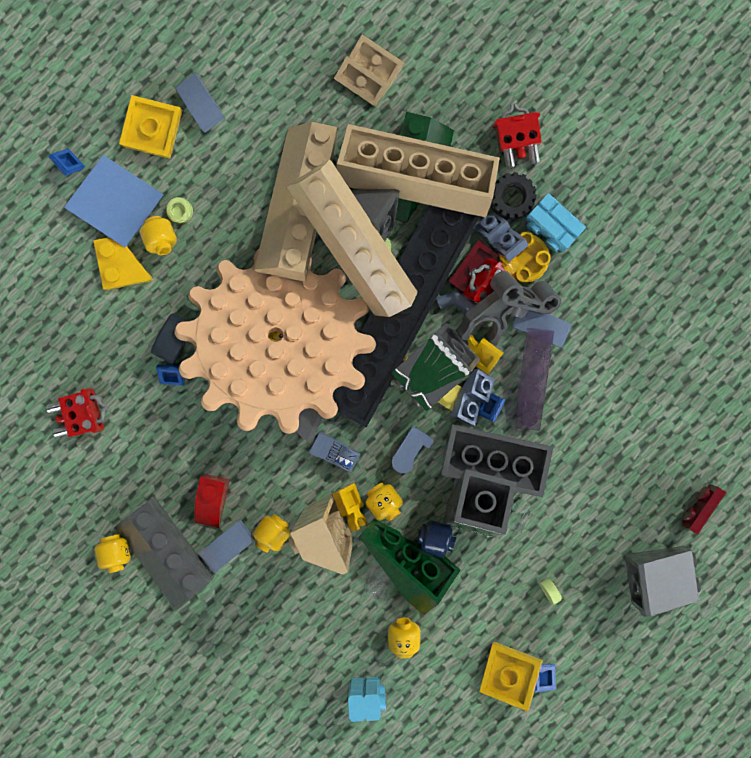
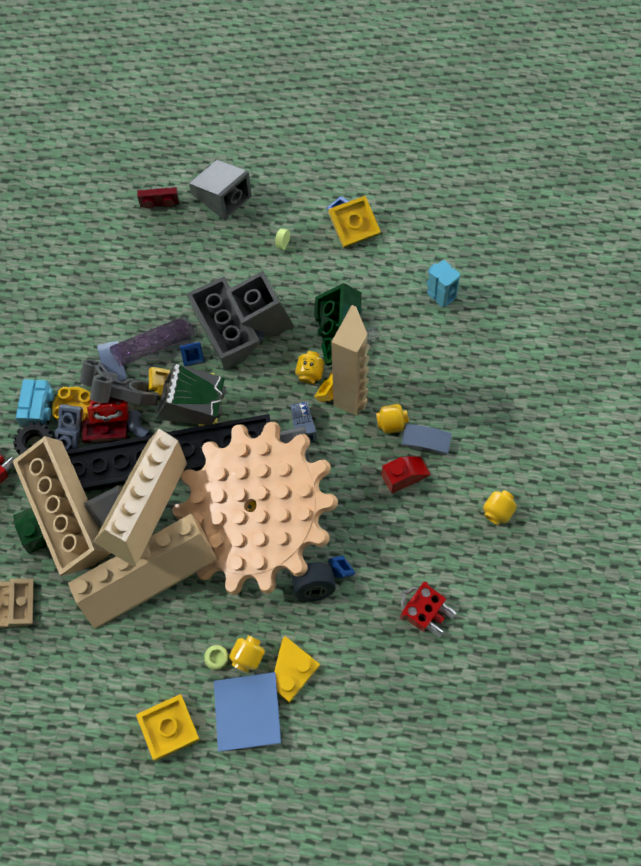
camera: 125 degrees left, 25 degrees down
(66, 162) = (245, 770): blue slope -> none
(164, 552) = (469, 475): dark grey slope -> none
(200, 102) = (120, 704): sand blue slope -> none
(404, 638) = (386, 294): yellow head -> none
(409, 447) = (261, 379): sand blue leg -> none
(436, 538) = (306, 321): dark blue head -> none
(474, 392) = (205, 363): sand blue slope -> none

